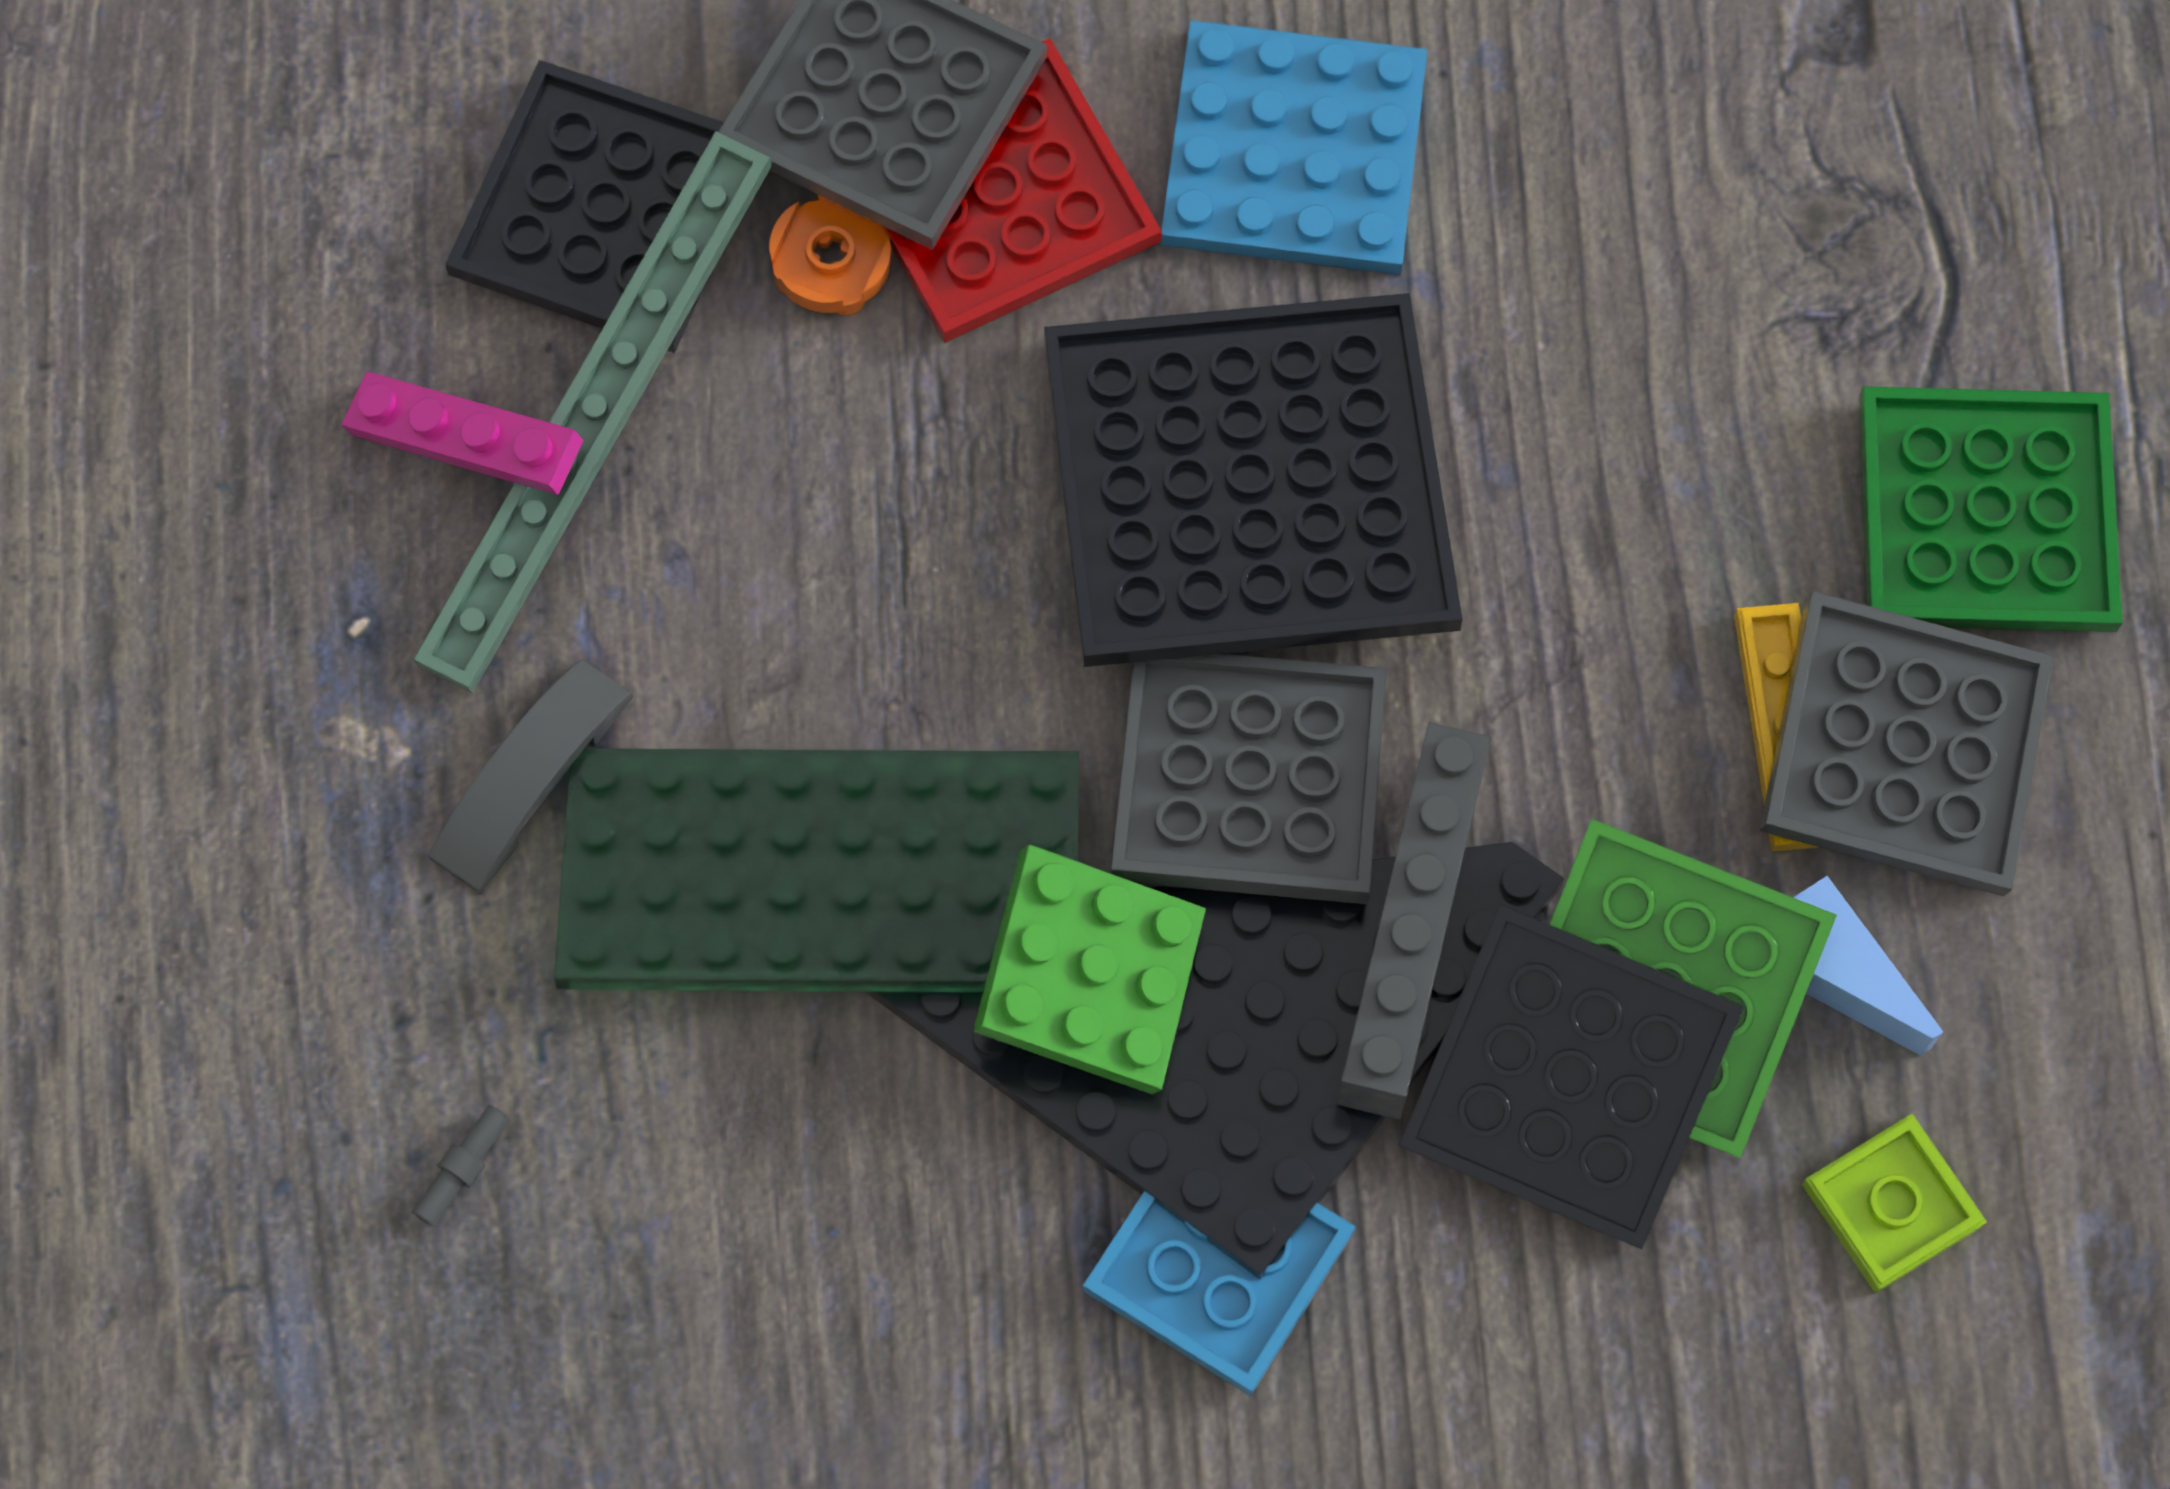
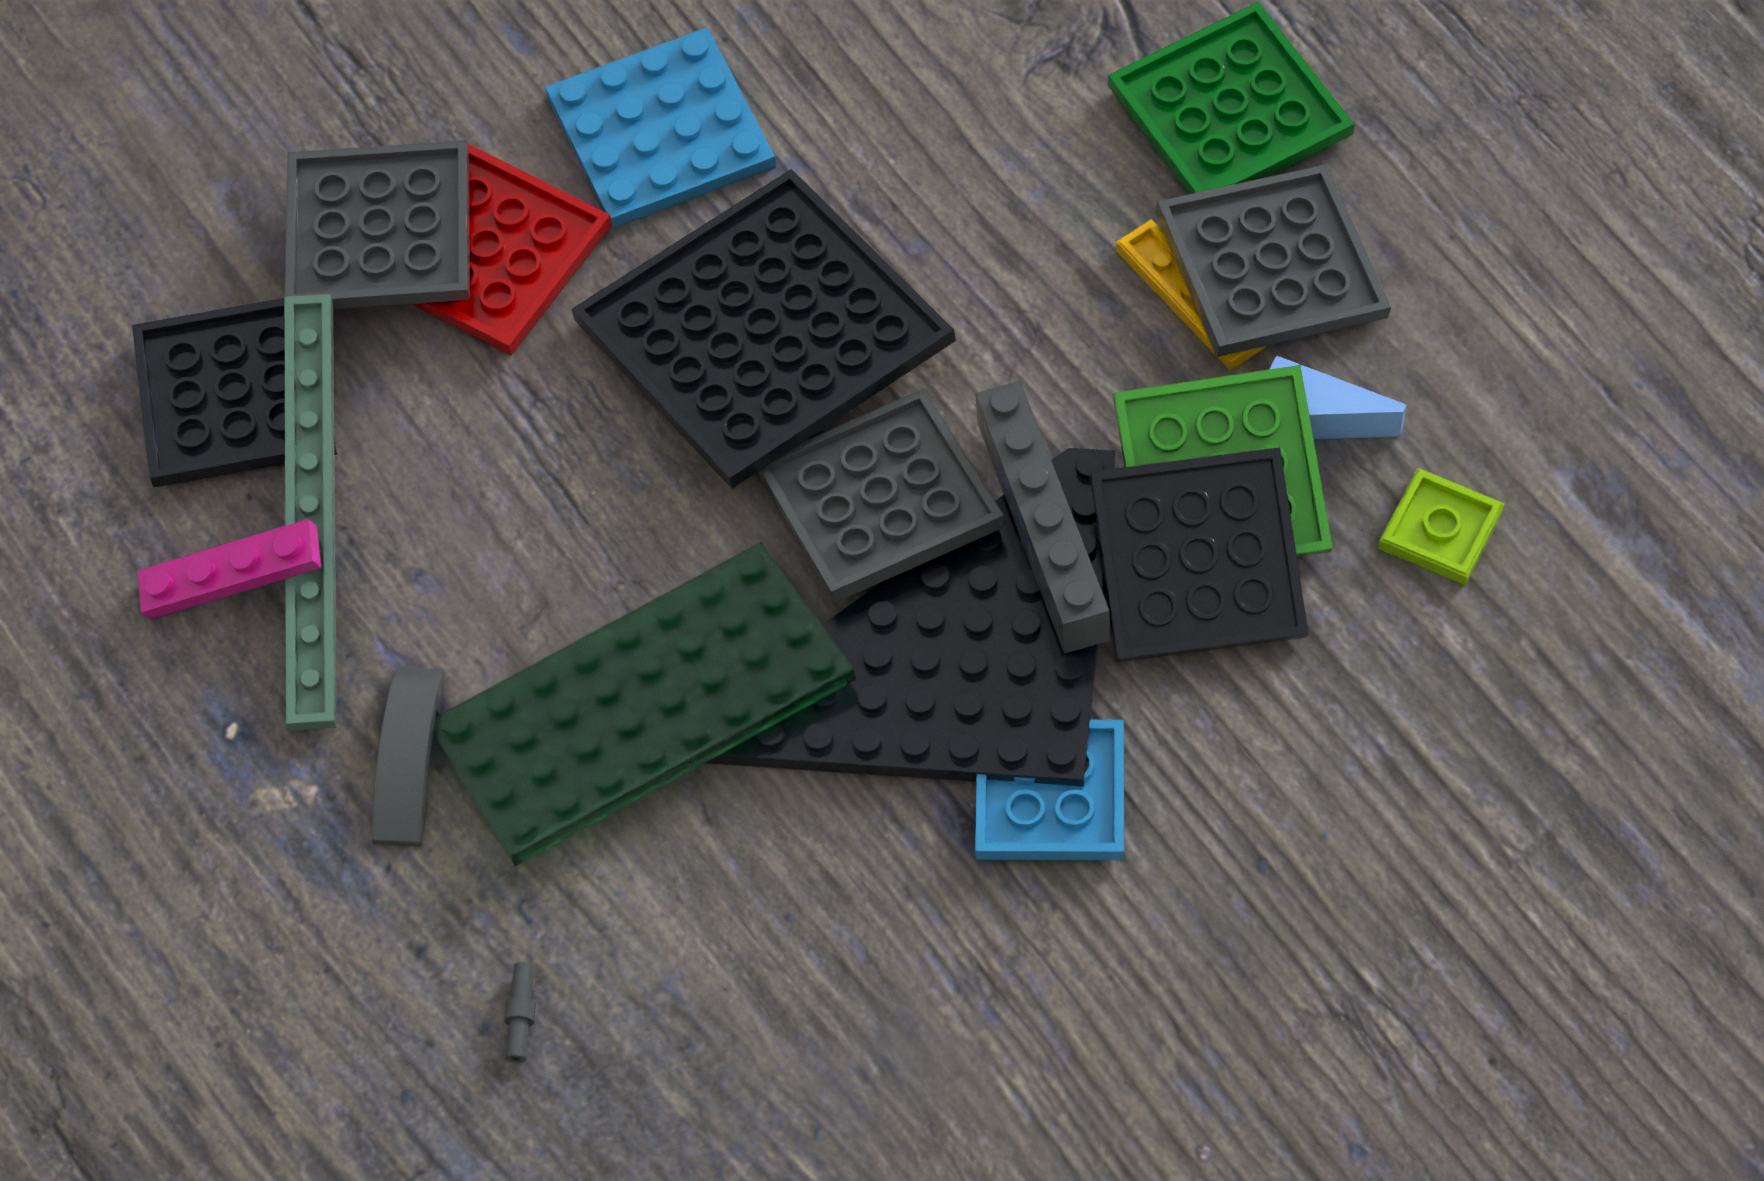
camera: 25 degrees left, 10 degrees down
(823, 286) = (404, 363): orange plate -> none
(1090, 969) = (858, 655): bright green plate -> none

